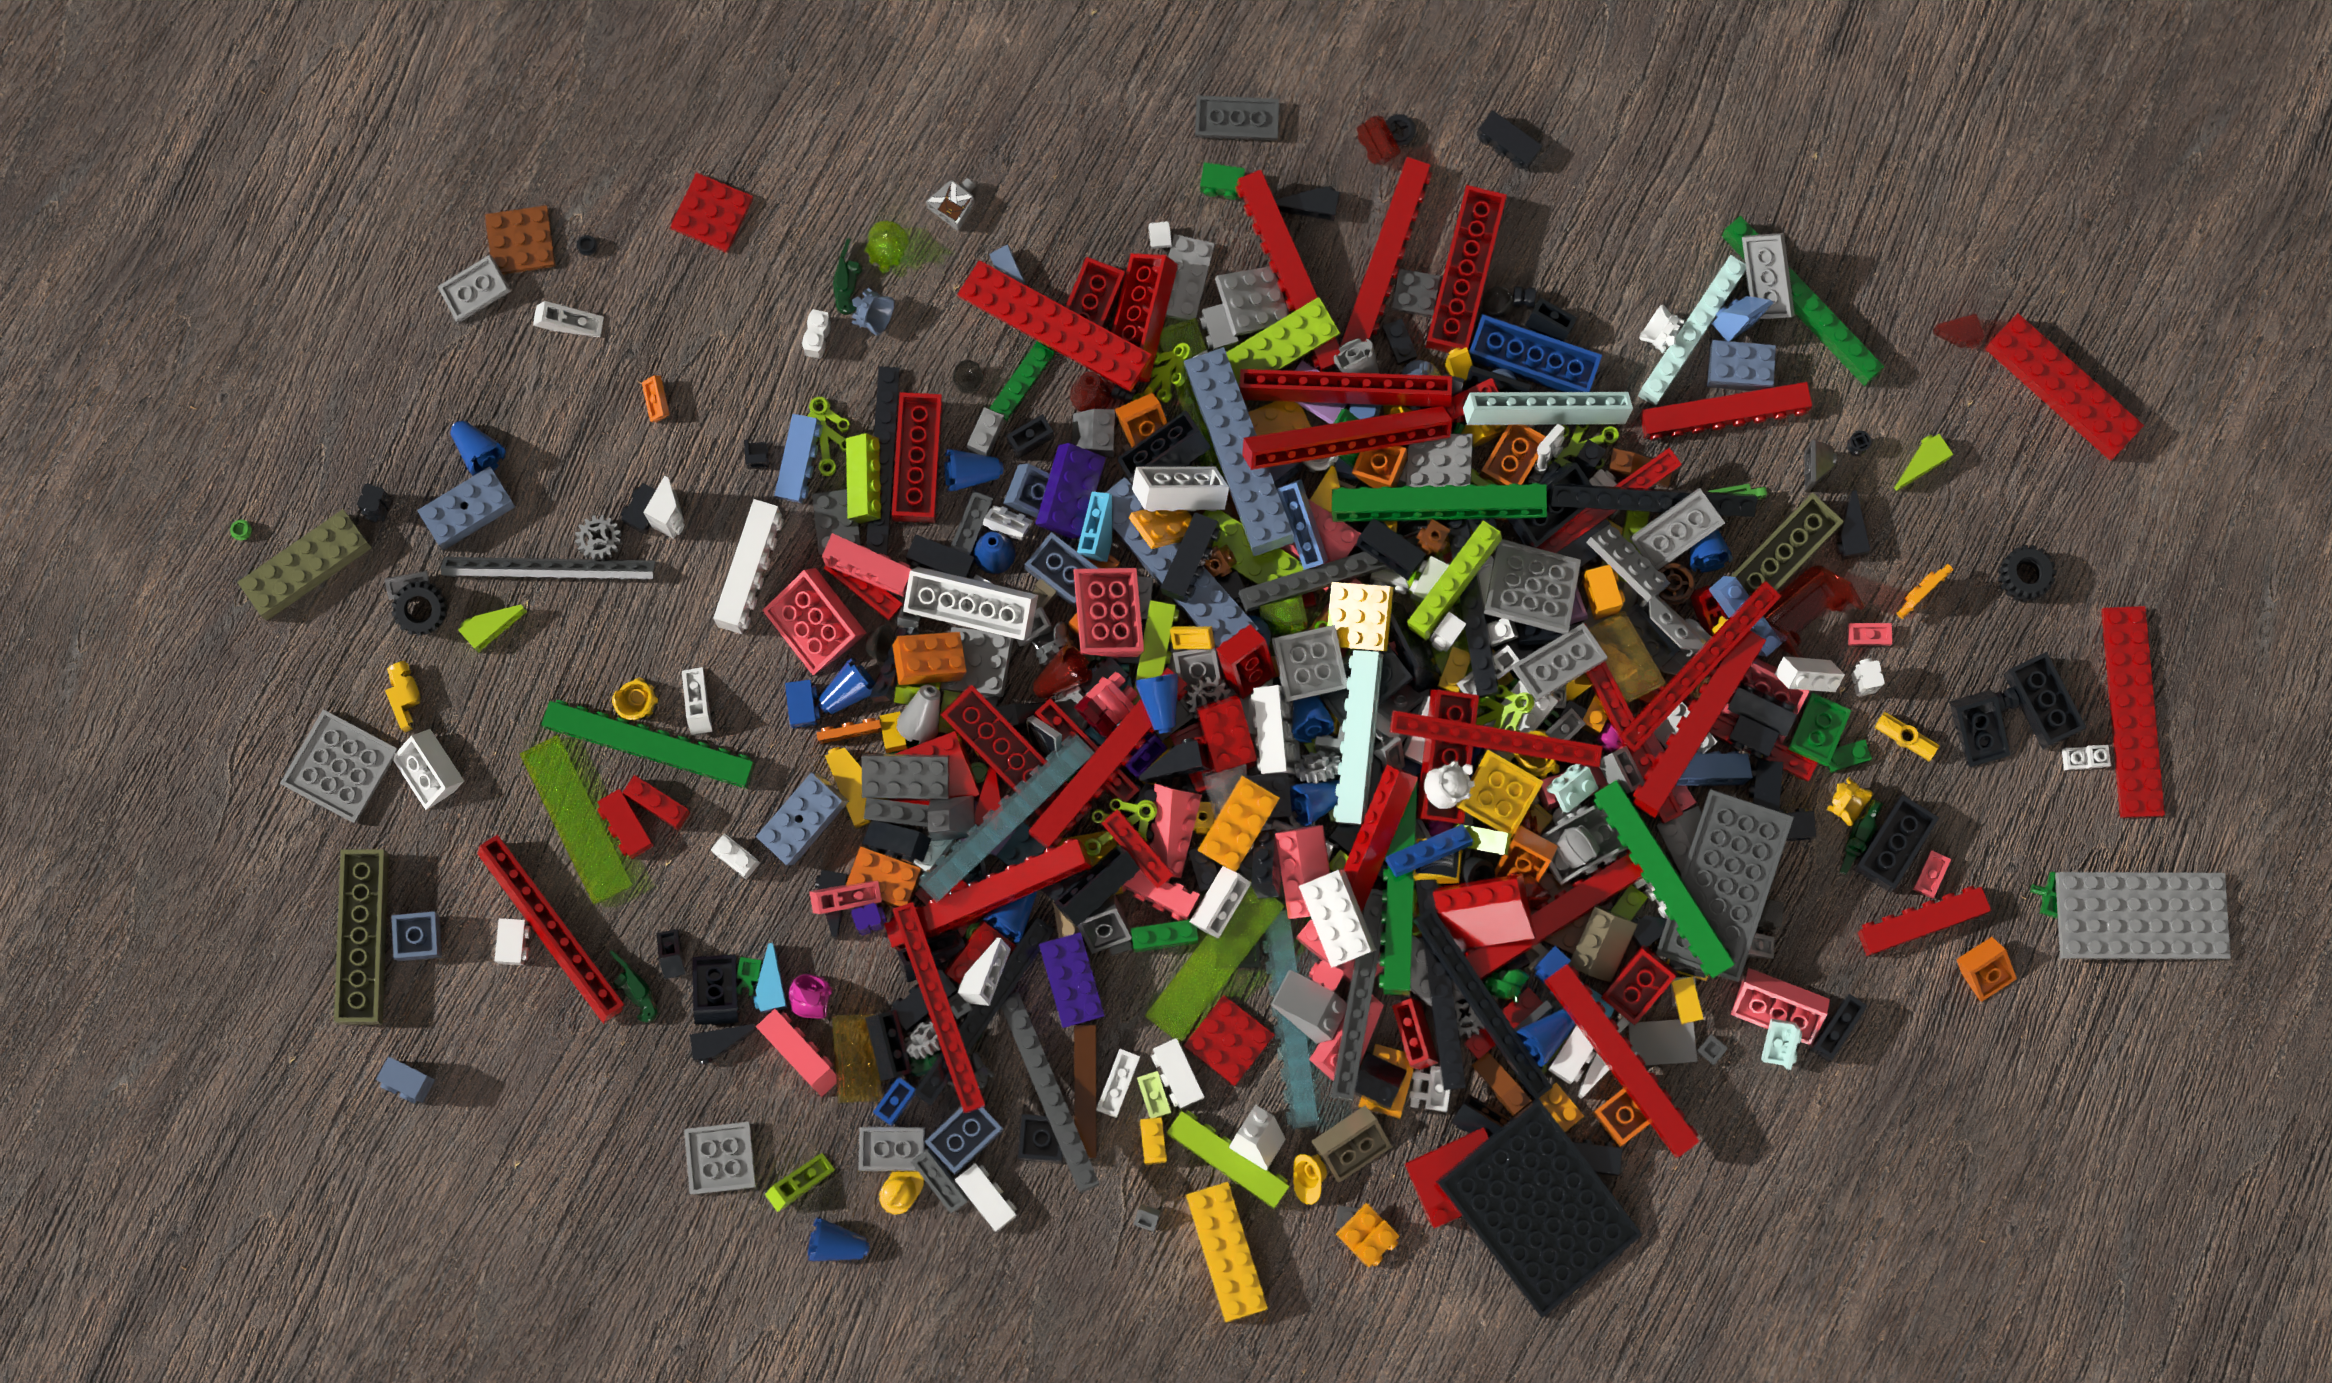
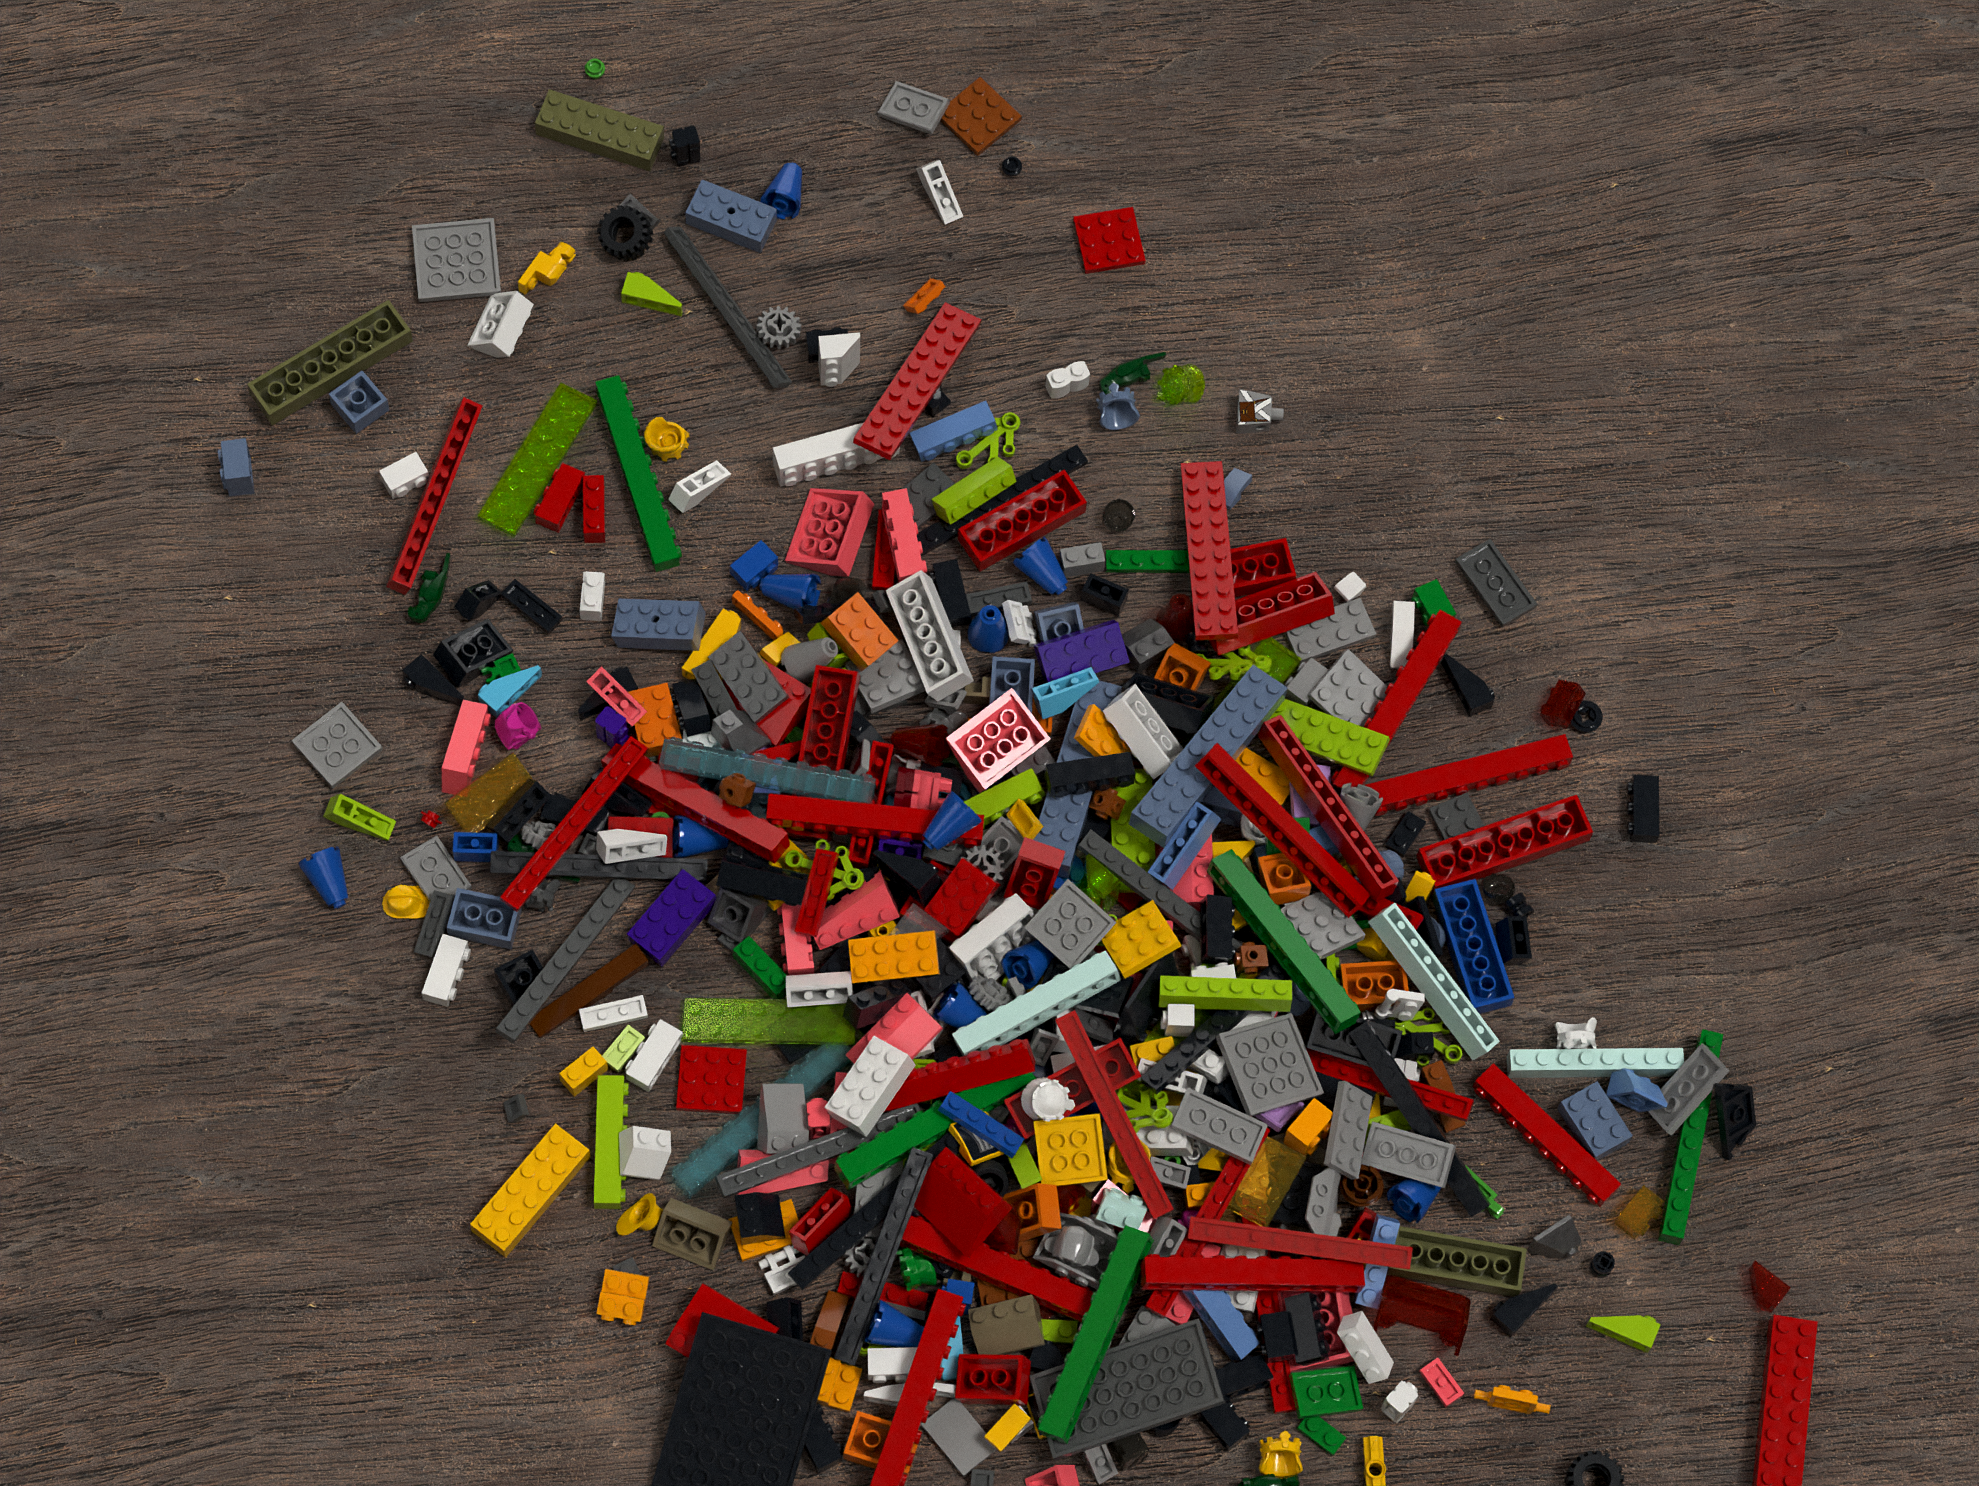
camera: 50 degrees right, 10 degrees down
(707, 913) = (531, 606): none -> black plate
(735, 458) = (917, 381): none -> red plate
(841, 1122) = (430, 818): none -> red plate
(1007, 854) = (736, 790): none -> dark orange brick
(1229, 224) = (1401, 633): none -> white slope
(1811, 254) = (1734, 1114): none -> black wing
(1836, 384) = (1639, 1212): none -> clear yellow brick

